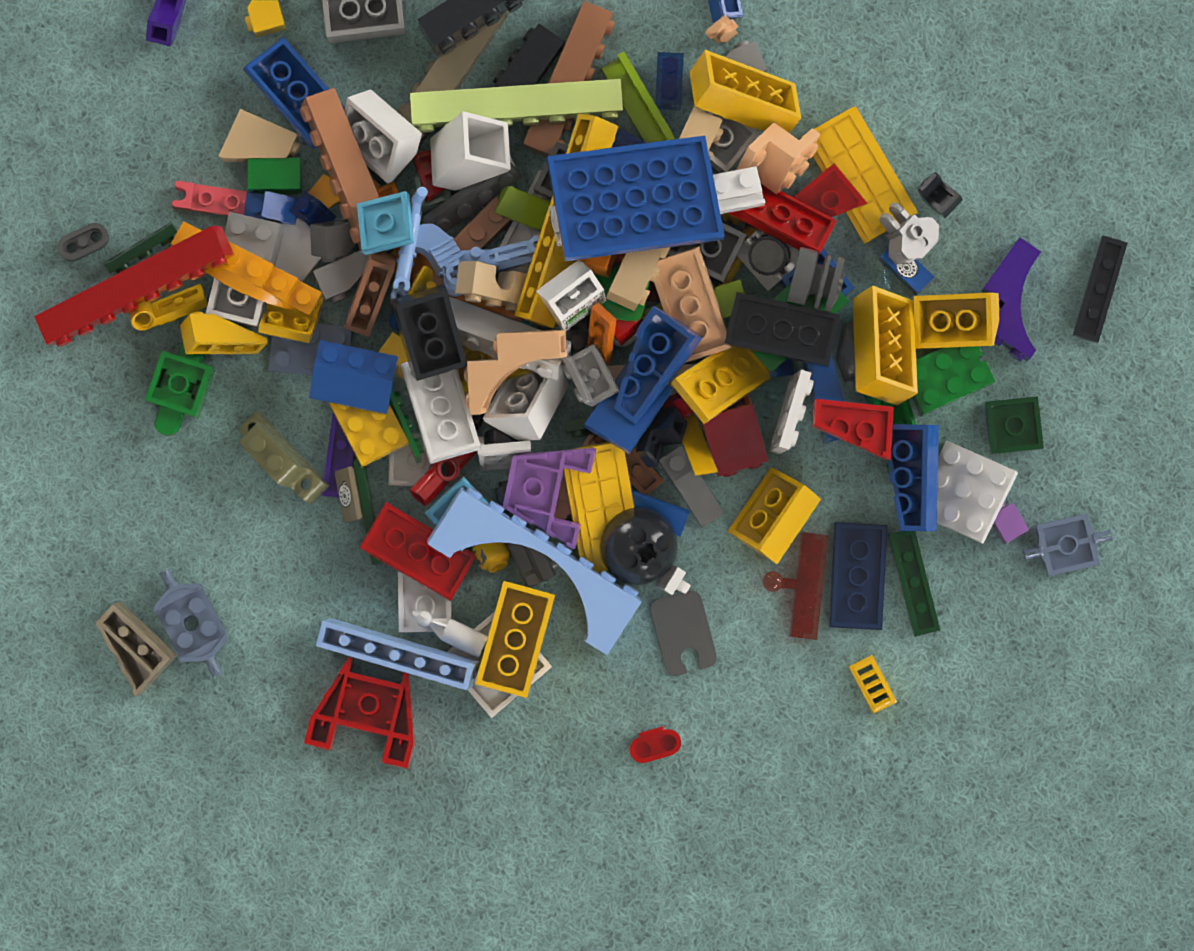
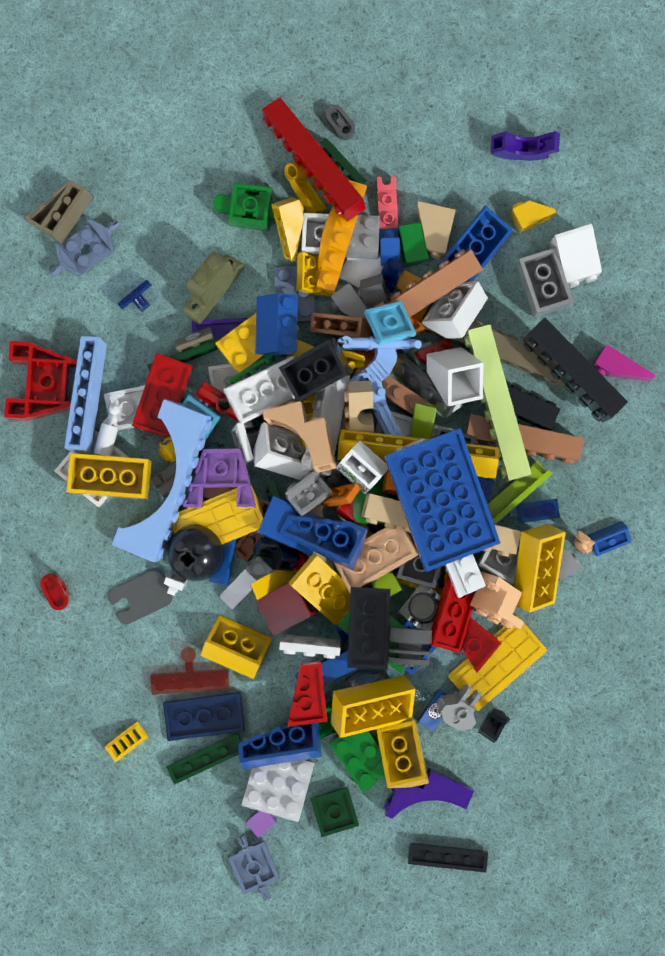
camera: 80 degrees right, 0 degrees up
(272, 565) = (136, 297): none -> clear blue tile

